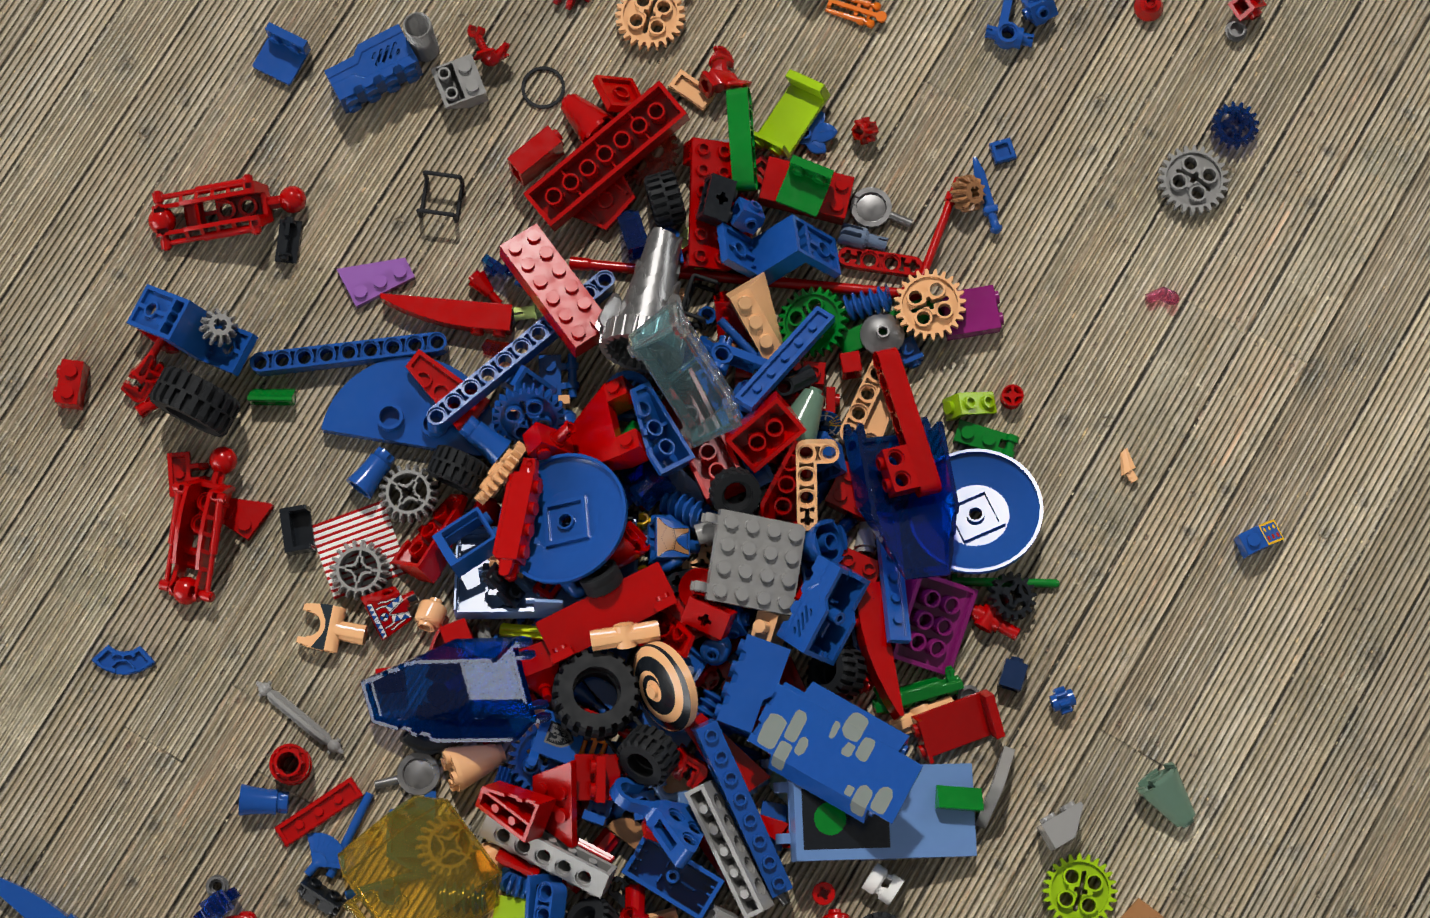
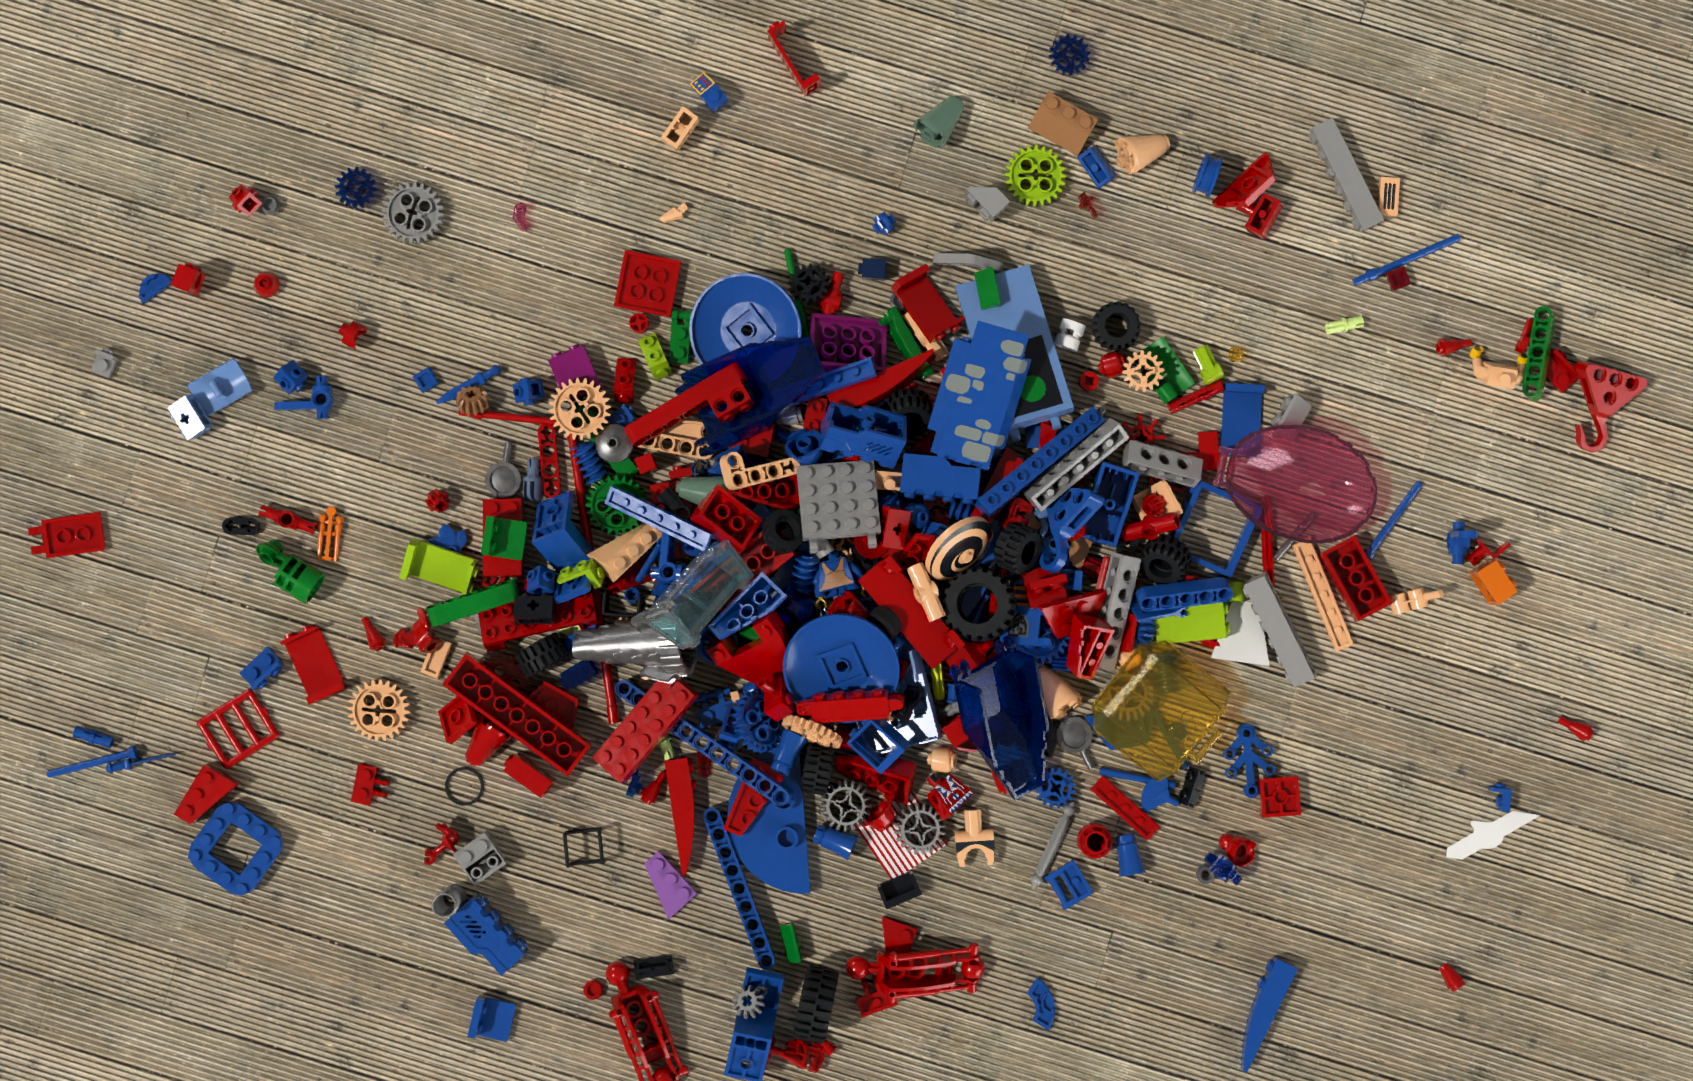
camera: 105 degrees left, 10 degrees up
(250, 731) = (1073, 879): none -> blue plate
(282, 171) = (593, 989): none -> red tile
(367, 745) = (1063, 782): none -> blue gear
(385, 530) = (882, 815): none -> red piece
(729, 30) = (375, 639): none -> red cone
(747, 269) = (589, 568): none -> lime bracket
(951, 364) = (624, 380): none -> red bracket
(963, 256) = (528, 391): none -> blue brick
(1054, 417) = (647, 284): none -> red plate
(1073, 82) = (351, 333): none -> red piece
(1223, 494) = (680, 129): none -> light nougat brick
(1243, 652) = (806, 86): none -> red panel

